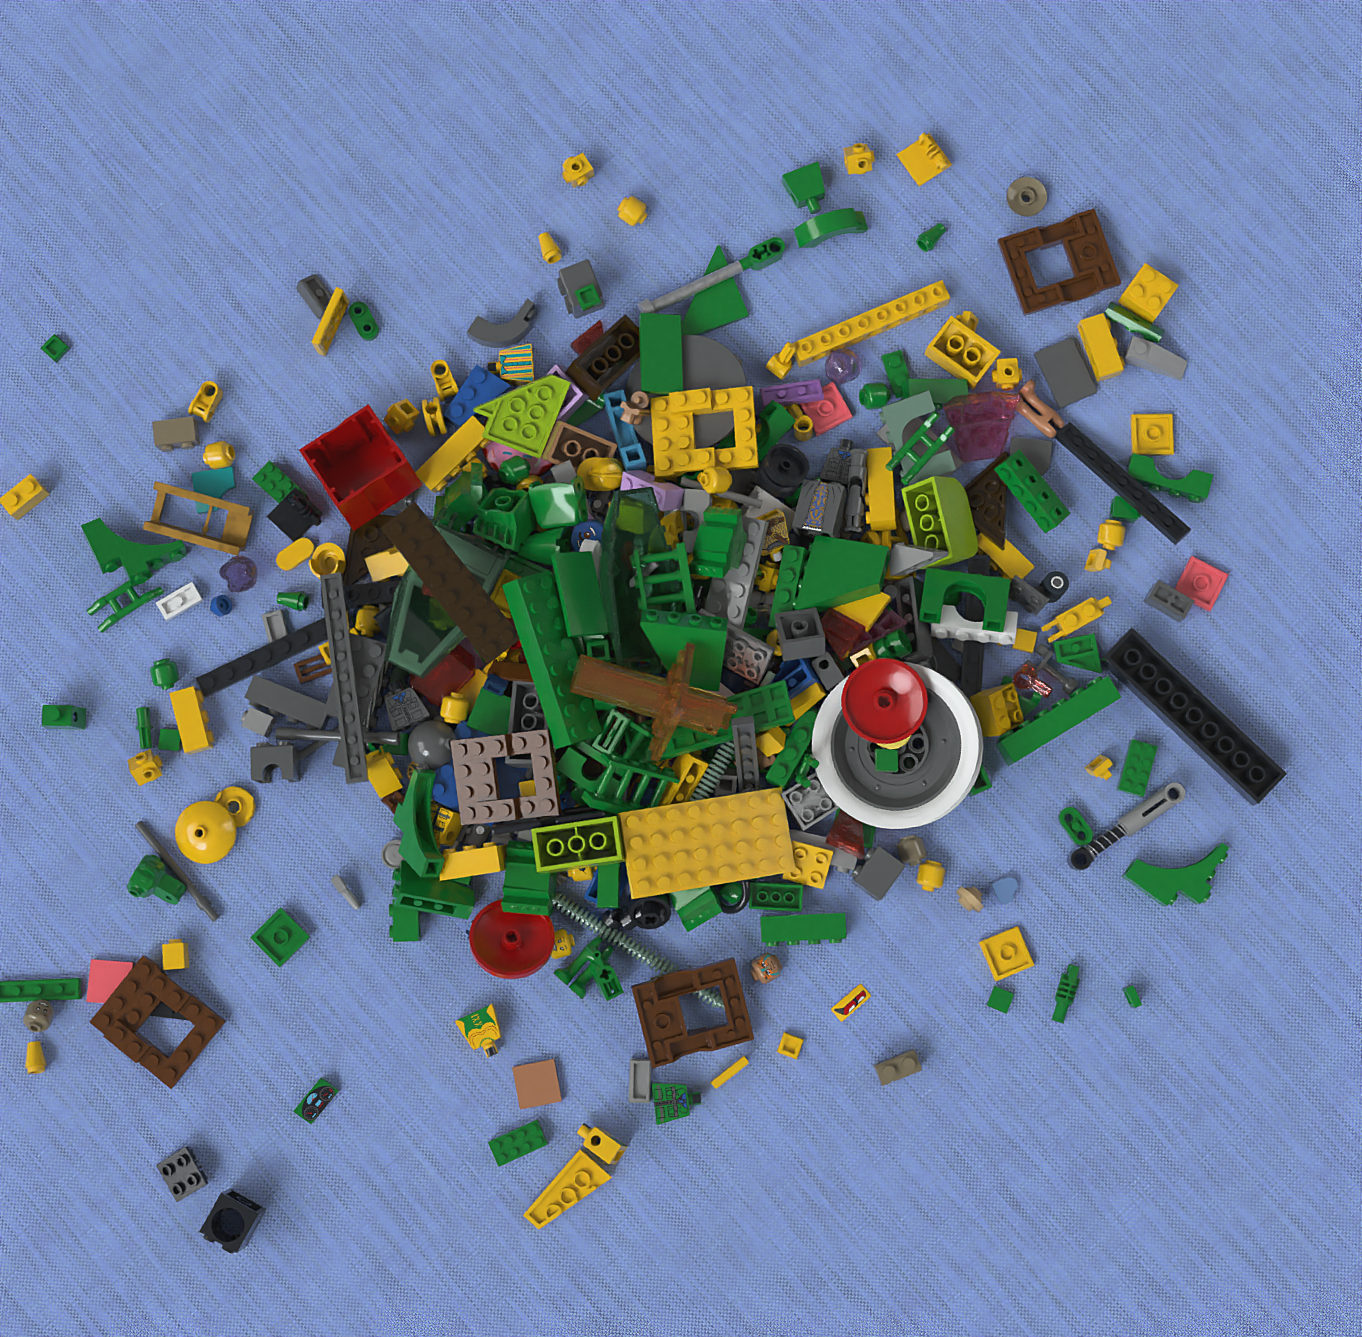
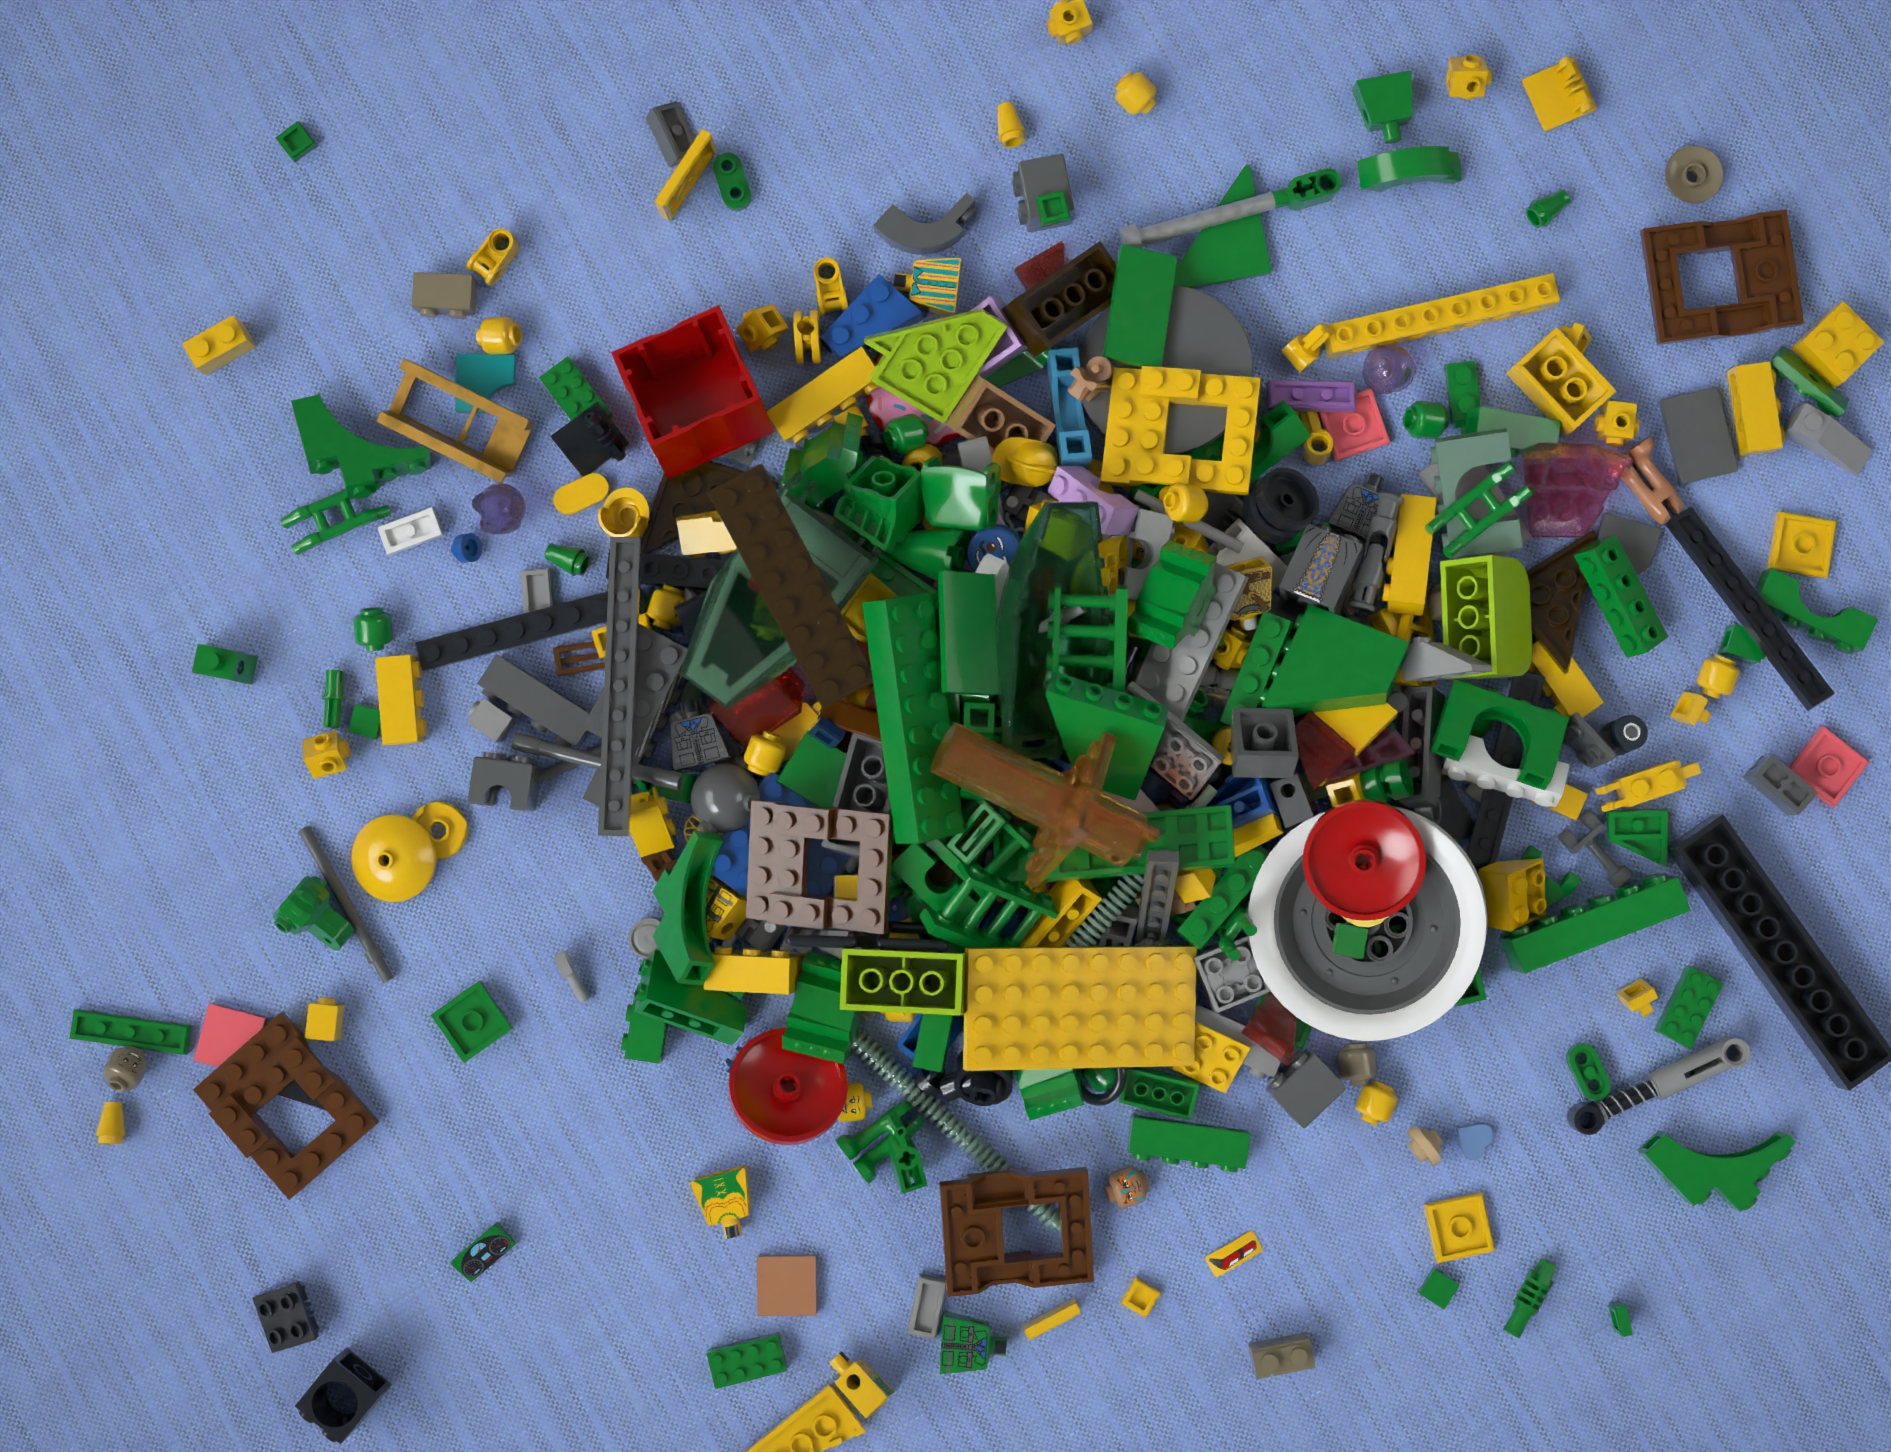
camera: 10 degrees right, 5 degrees up
(1032, 682) = (1569, 863): clear red axle -> none

